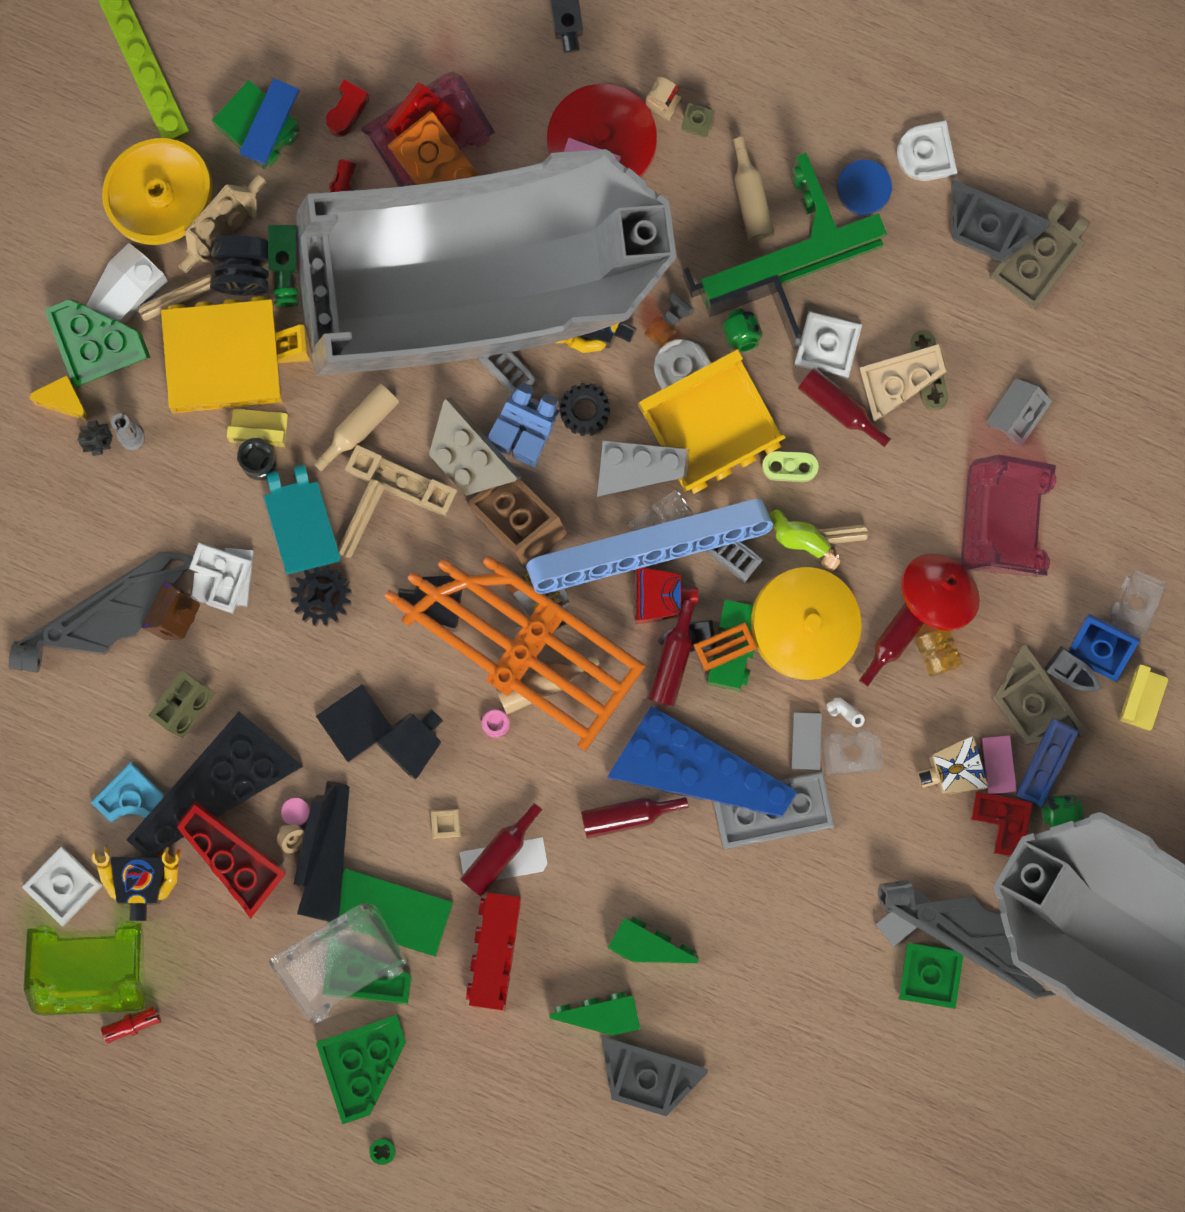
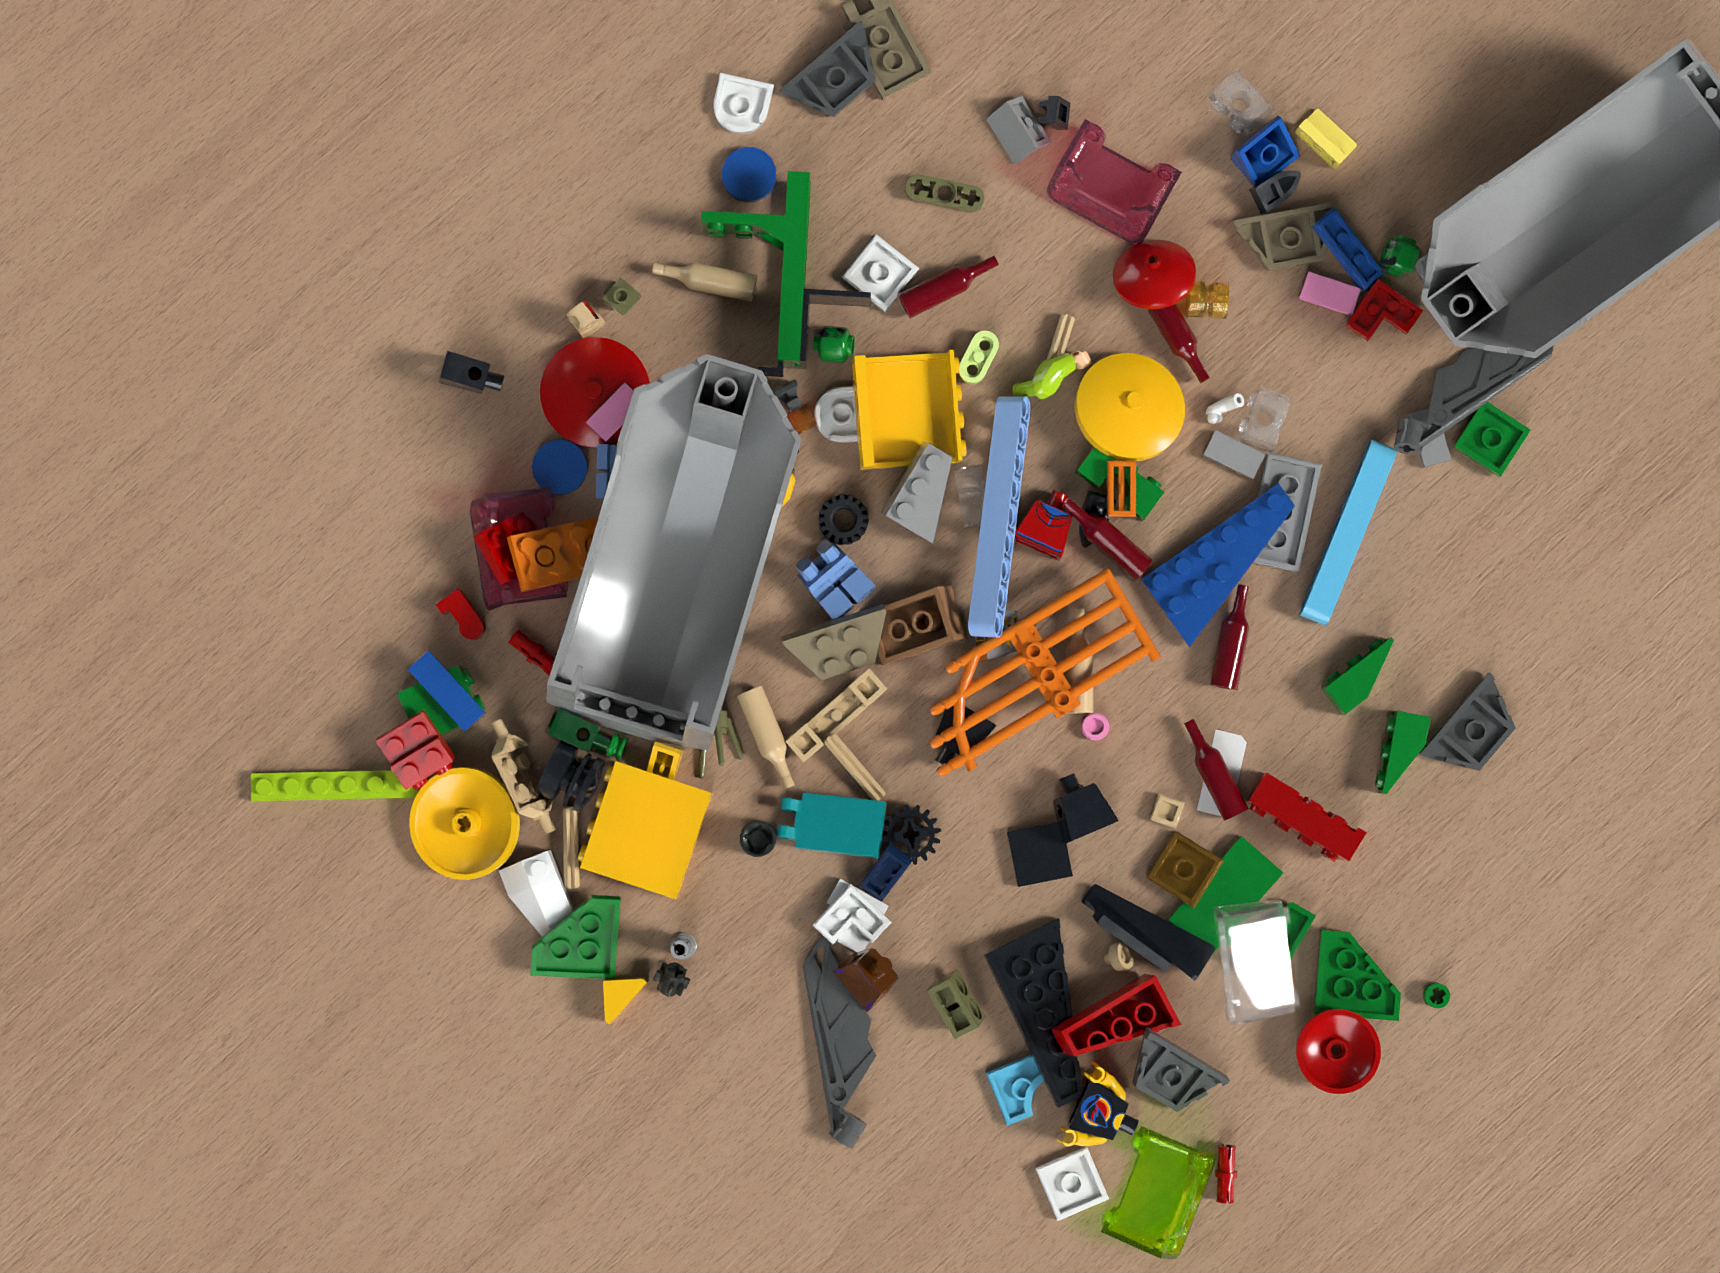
camera: 70 degrees left, 5 degrees up
(202, 932) = (1173, 1073): none -> dark grey wing
(203, 118) = (416, 750): none -> plate
(258, 424) = (726, 824): light yellow panel -> none
(268, 1082) = (1357, 1056): none -> red dish
(275, 588) = (886, 872): none -> dark blue plate
(295, 811) = (1097, 942): bright pink tile -> none
(343, 380) = (722, 724): none -> olive plant
(398, 863) = (1185, 869): none -> pearl gold tile
(500, 375) = (776, 582): light grey slope -> none
(519, 136) = (560, 467): none -> blue tile
(743, 575) = (1057, 435): light grey slope -> none
(781, 878) = (1348, 532): none -> medium azure beam
(900, 378) = (942, 221): tan wing -> none
(955, 769) = (1318, 333): torso -> none
(1050, 438) = (1057, 112): none -> black tile

